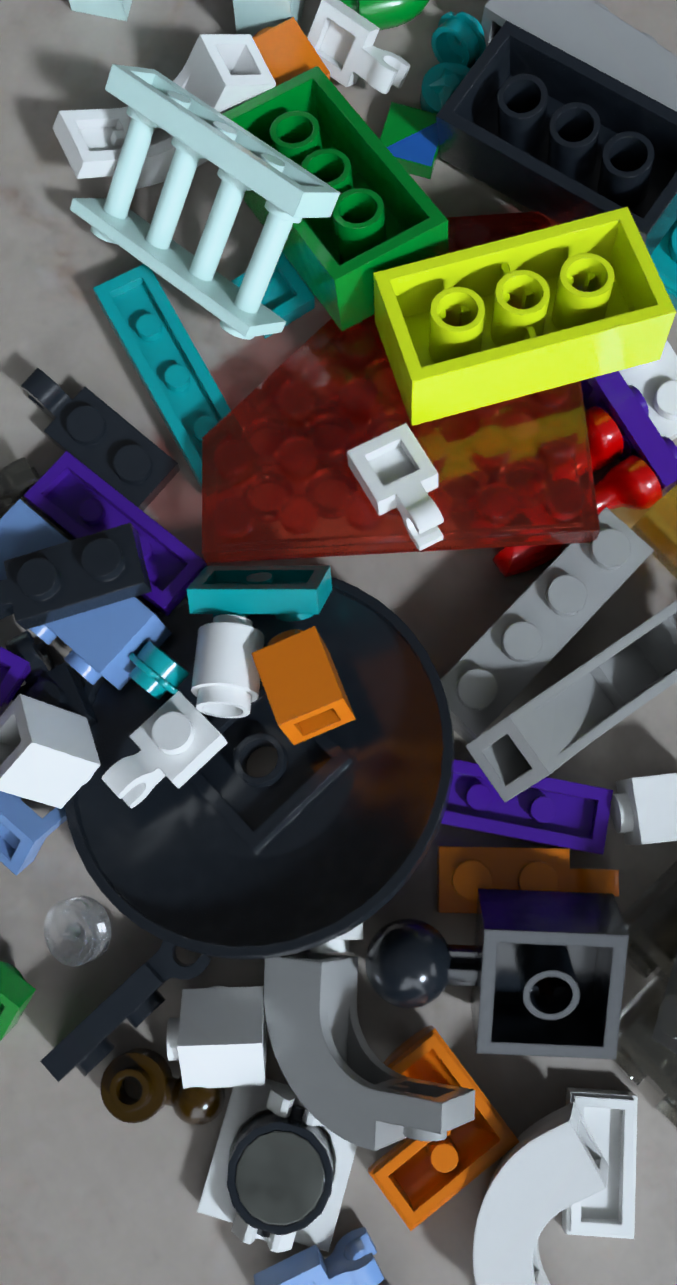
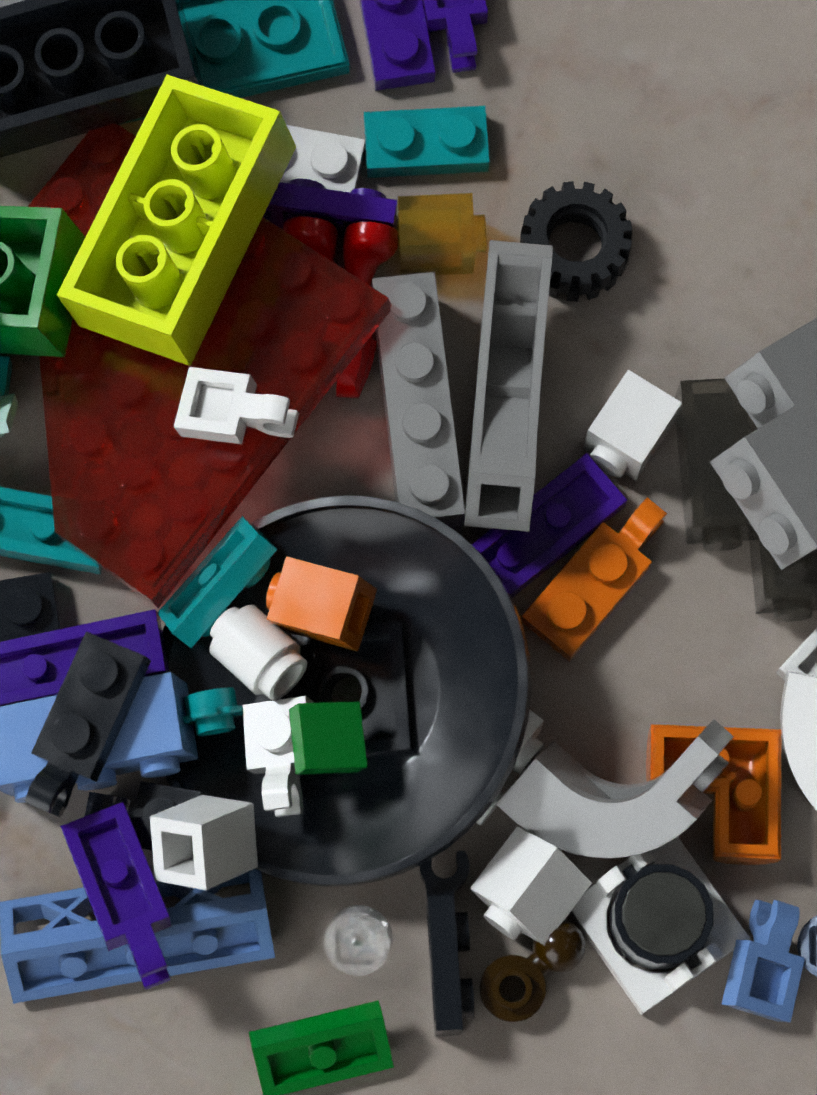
camera: 50 degrees left, 5 degrees down
(198, 781) = (327, 738): none -> green tile
(539, 971) = (634, 608): black brick -> none

